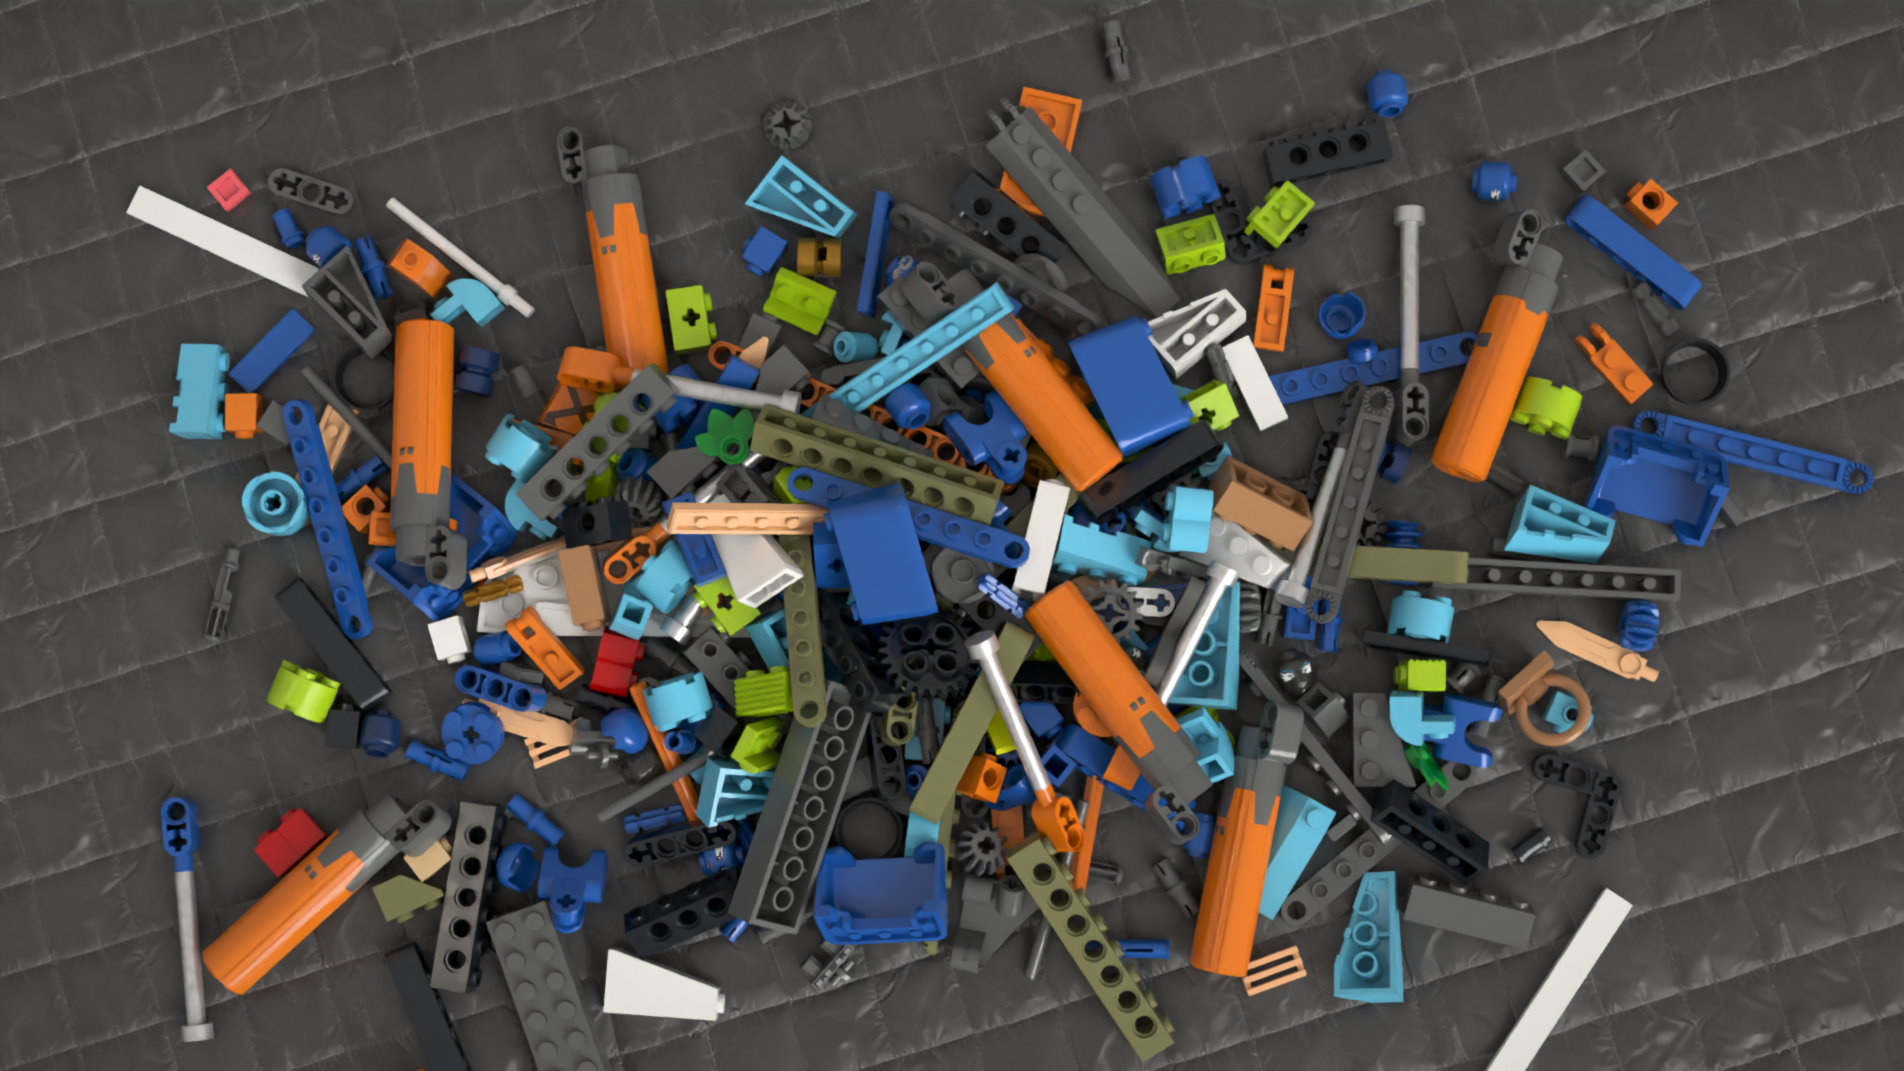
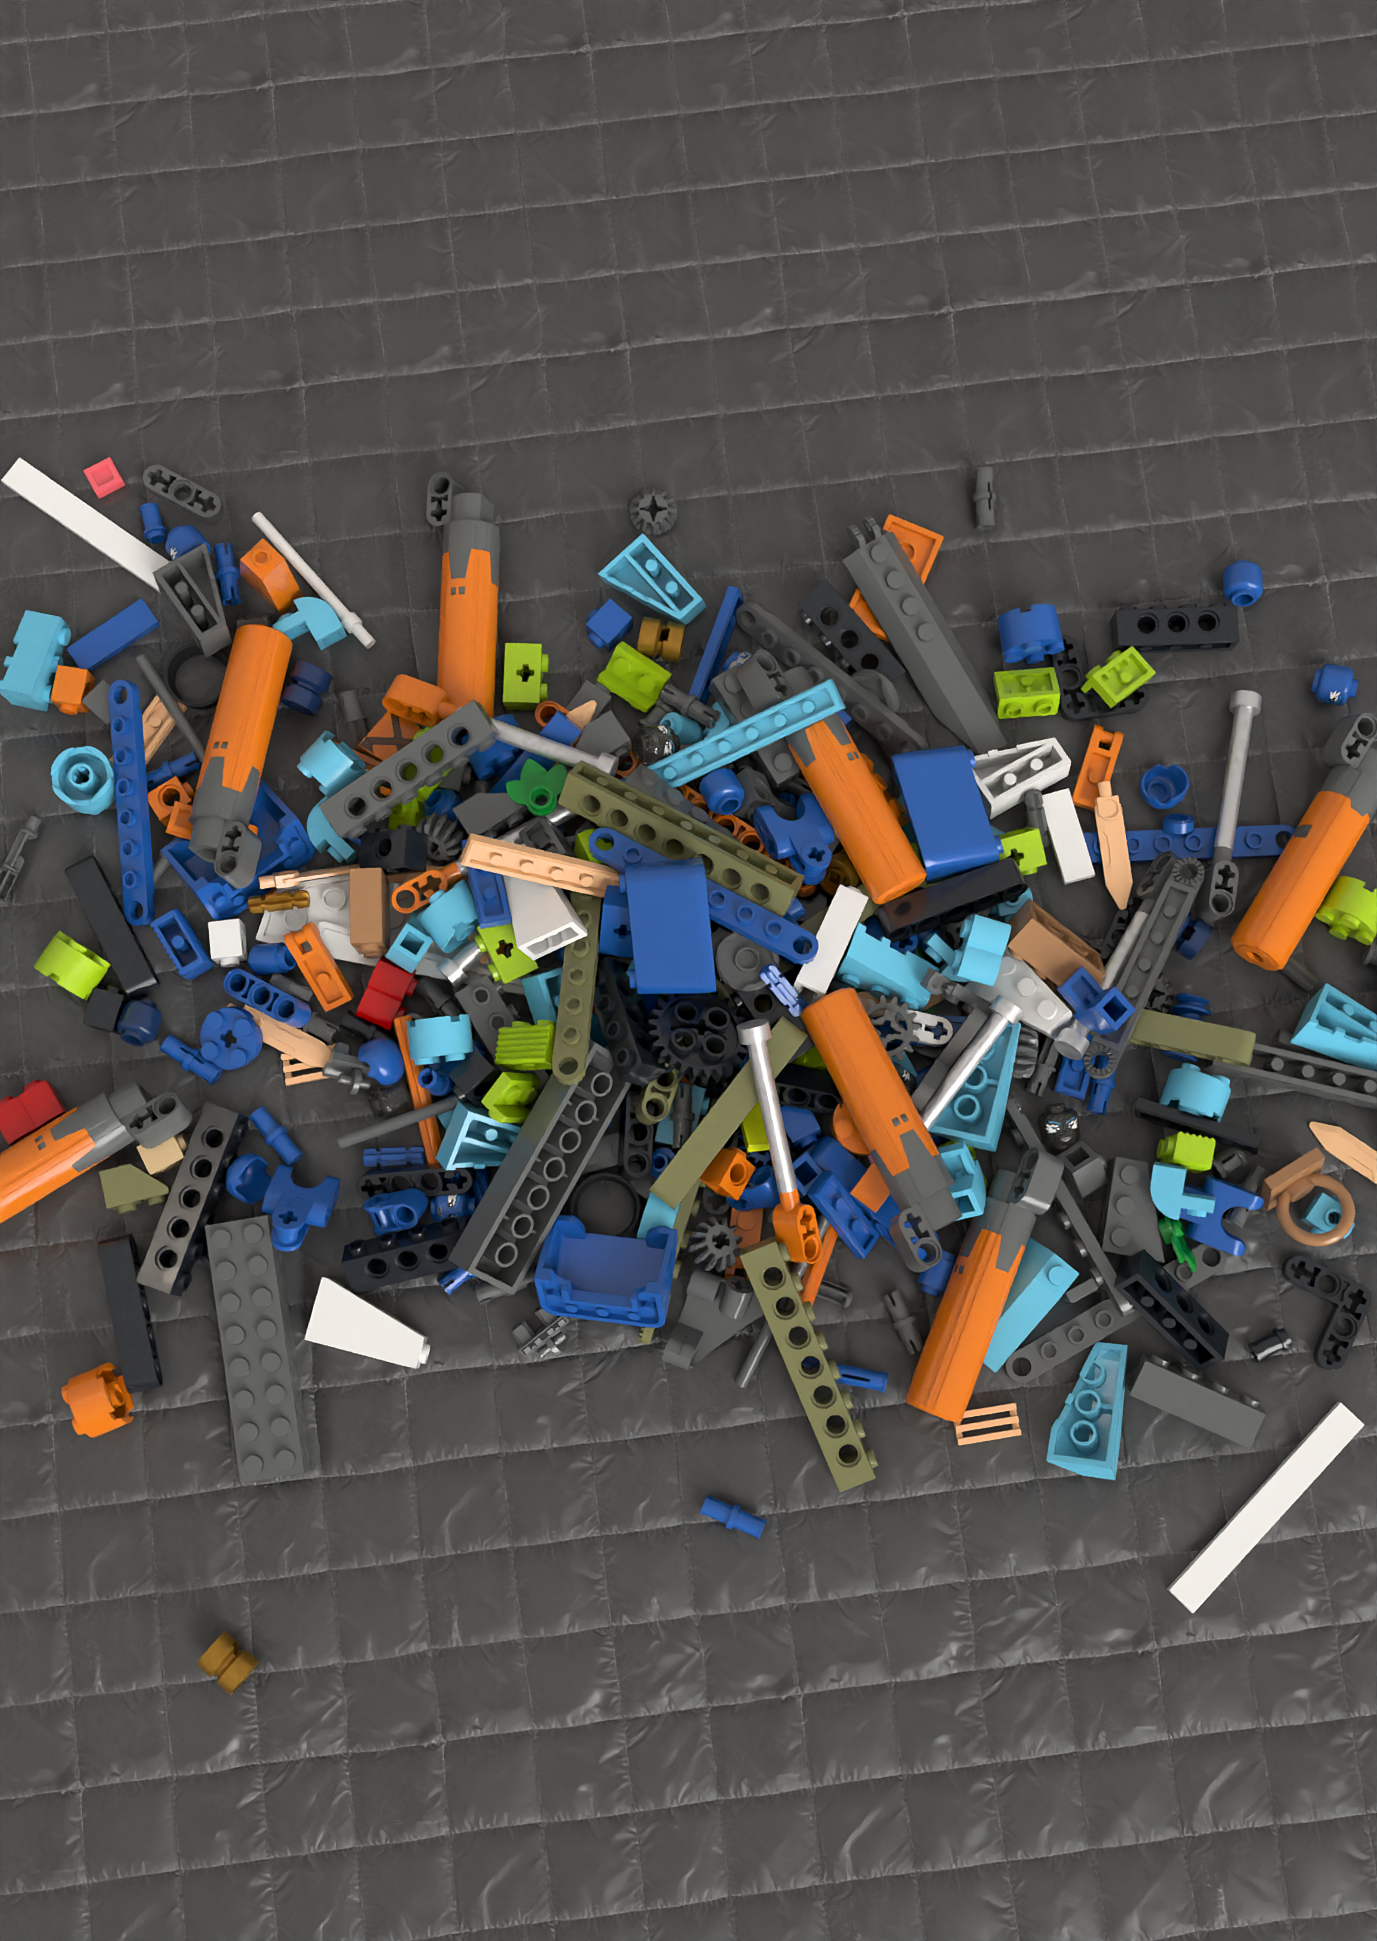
camera: 10 degrees right, 5 degrees down
(406, 650) = (182, 944): none -> blue brick
(667, 872) = (396, 1210): none -> blue piece
(834, 369) = (655, 743): none -> clear smoke head
(860, 321) = (690, 706): none -> dark grey pin
(1100, 797) = (843, 1214): none -> blue tile
(1301, 384) = (1113, 845): none -> light nougat piece
(1309, 556) = (1094, 1007): none -> blue brick

